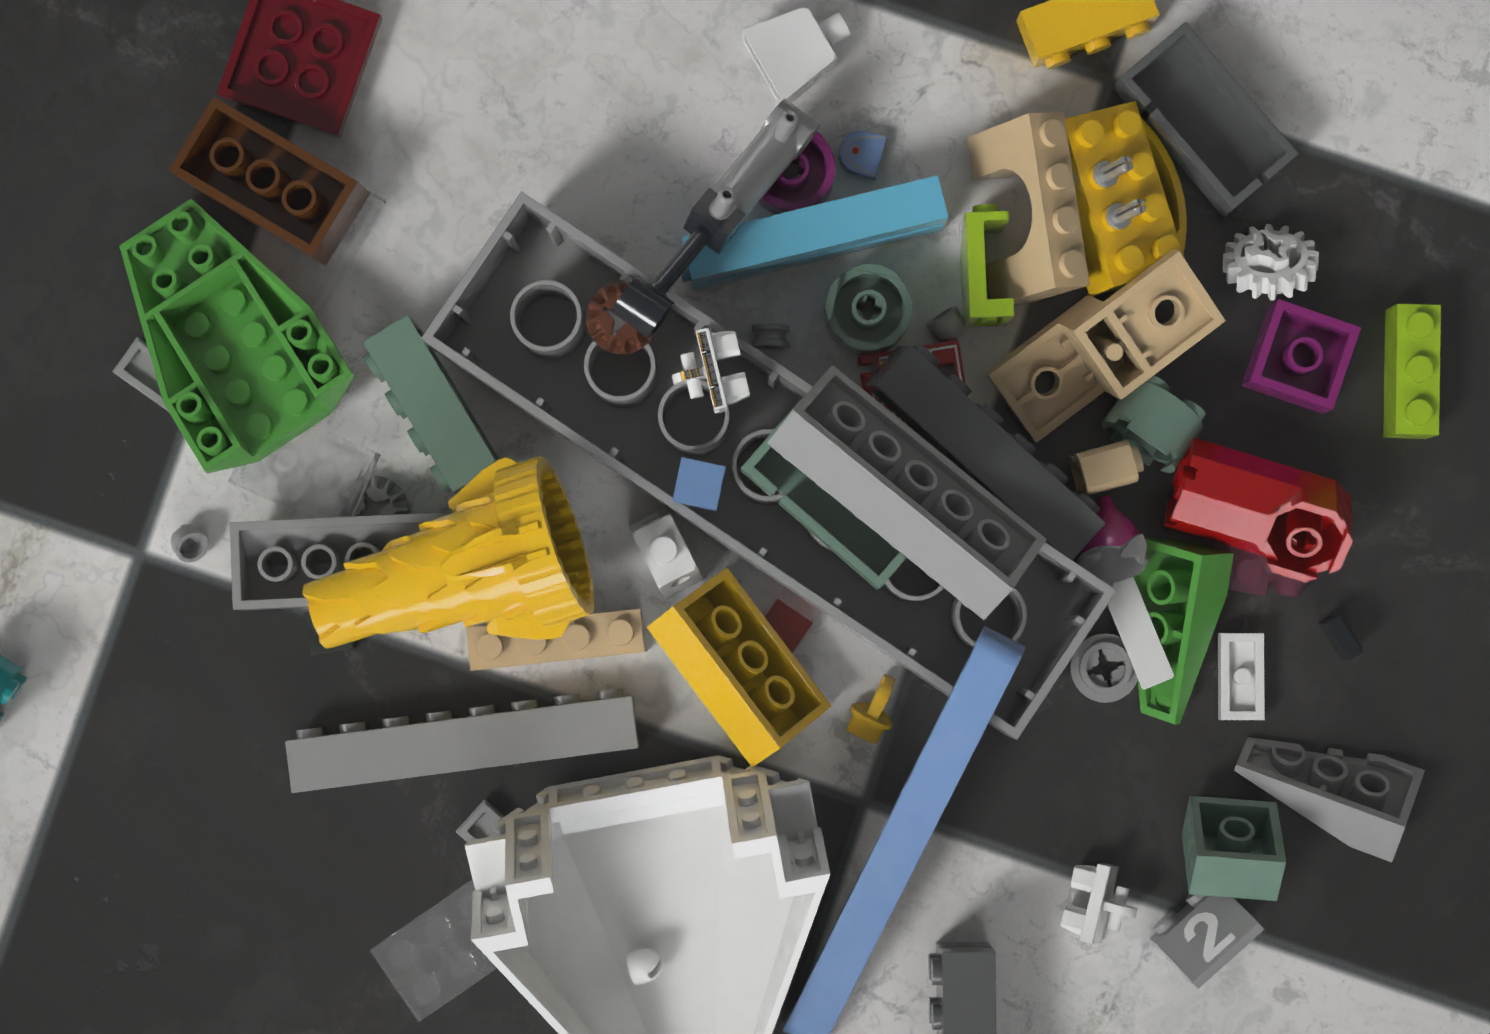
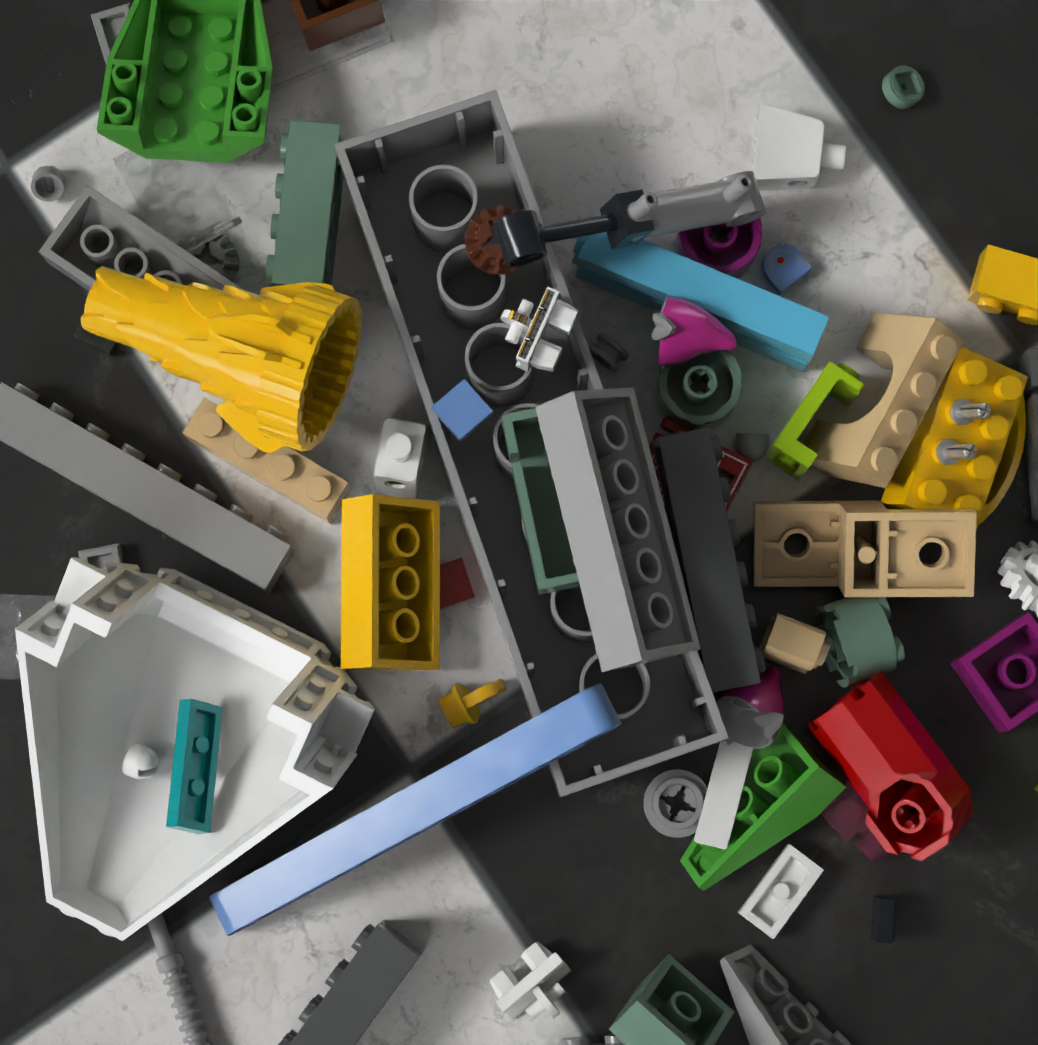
camera: 35 degrees right, 5 degrees down
(691, 935) = (194, 766): none -> teal plate
(829, 275) = (687, 332): none -> dark pink hat

